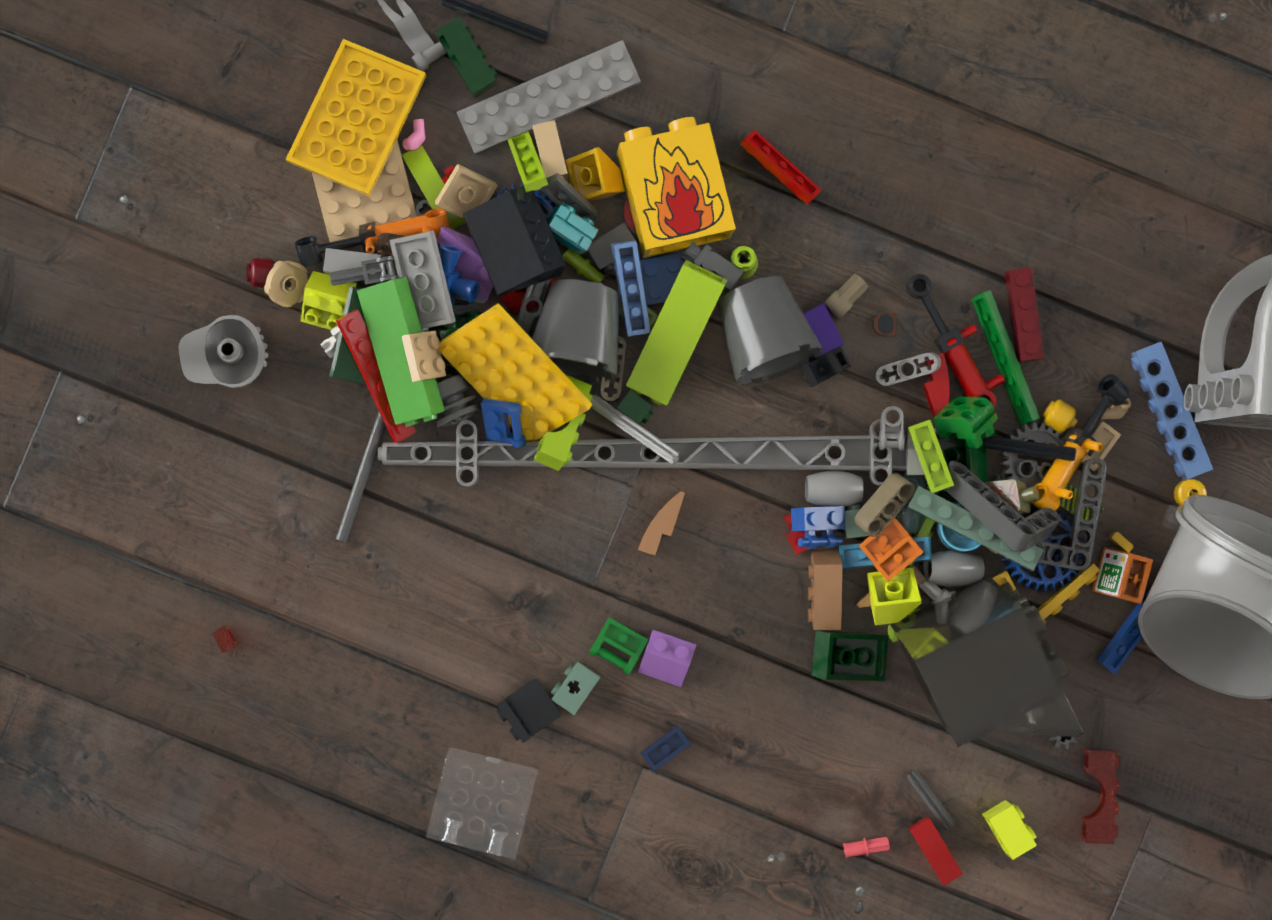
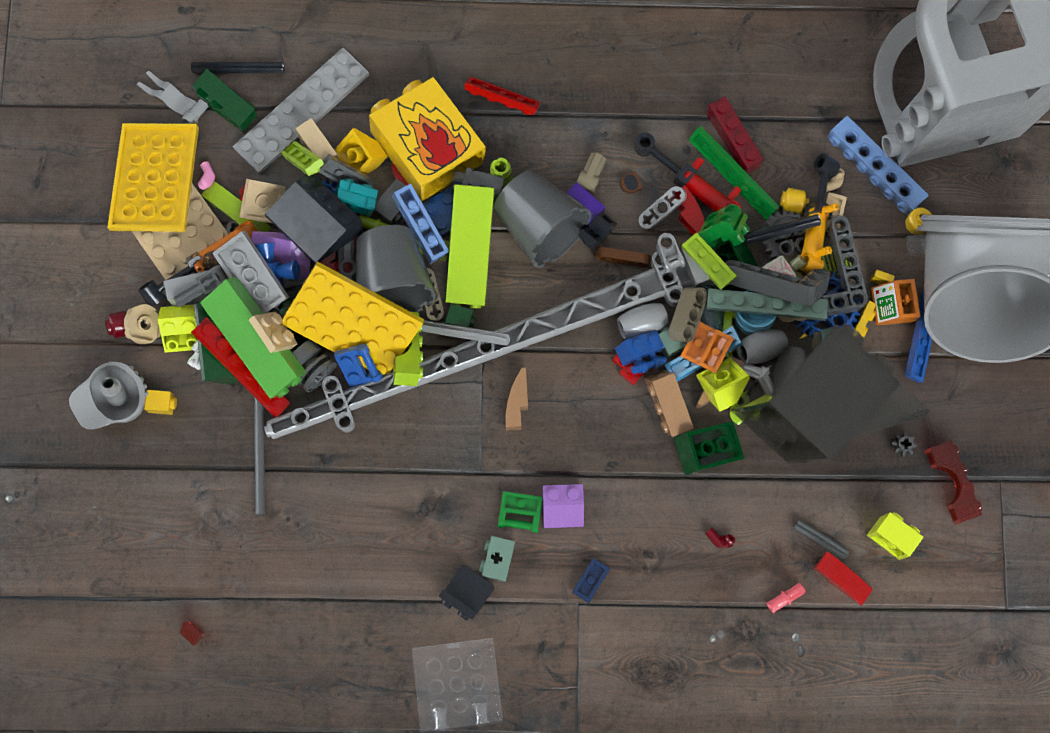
camera: 25 degrees left, 10 degrees down
(277, 377) = (160, 402): none -> yellow brick
(822, 760) = (720, 541): none -> dark red arm
(841, 406) = (622, 257): none -> reddish brown beam

